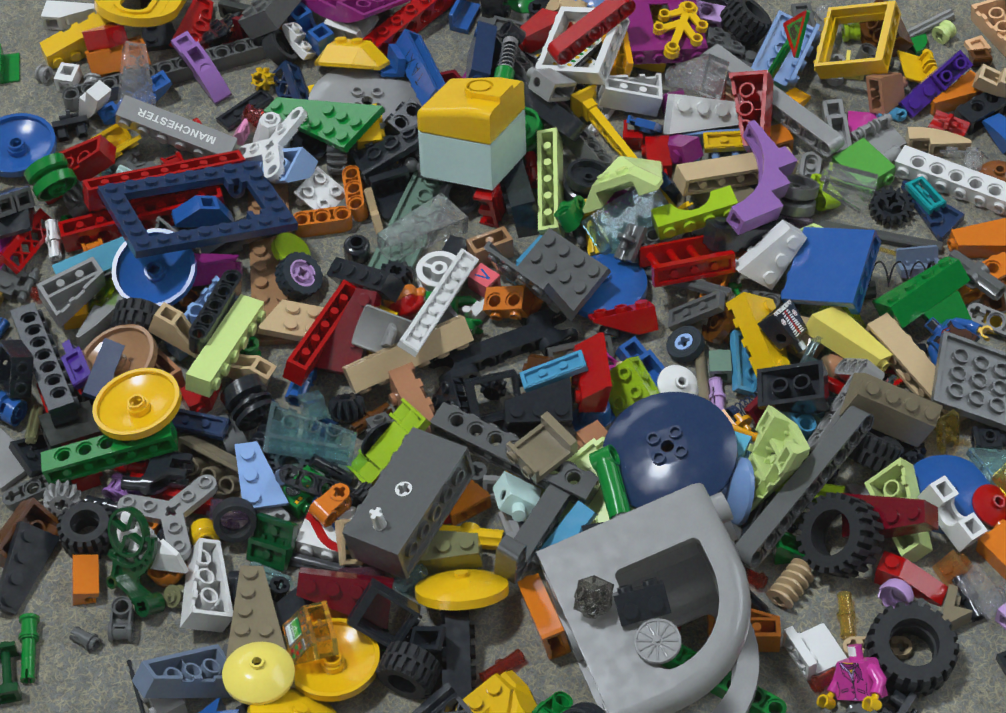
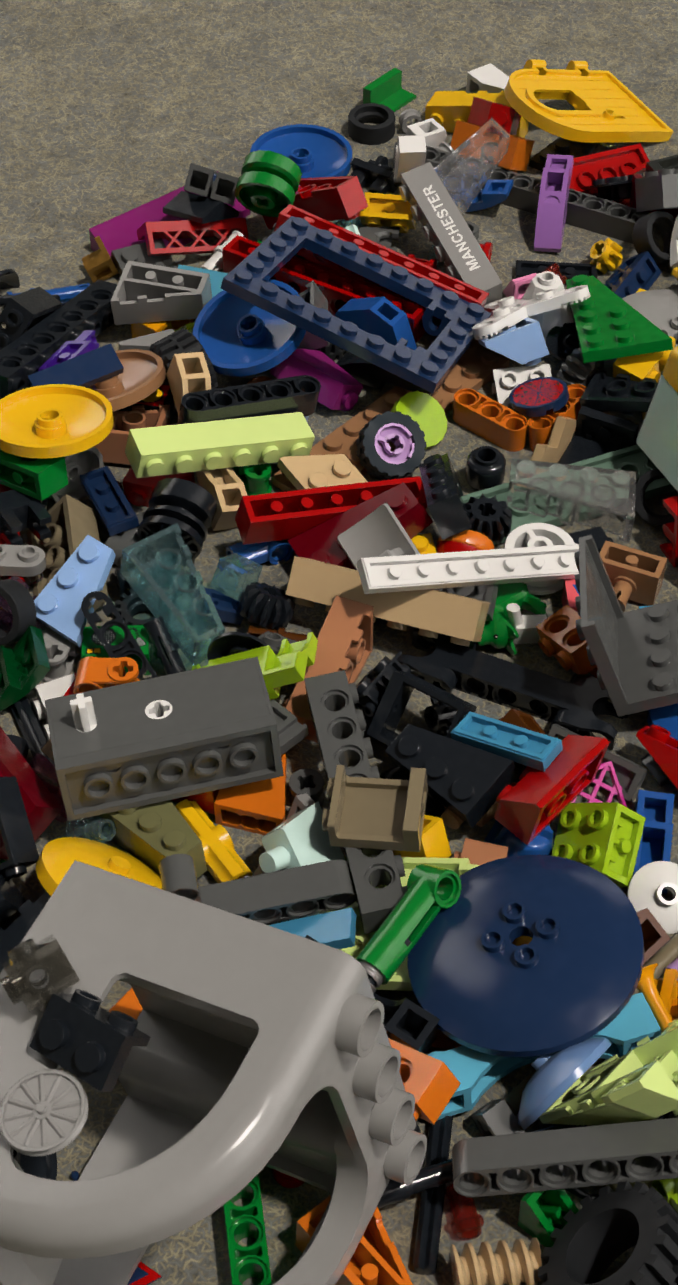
camera: 45 degrees right, 5 degrees down
(22, 102) = (371, 134): none -> black tyre
(338, 189) = (538, 396): none -> tile

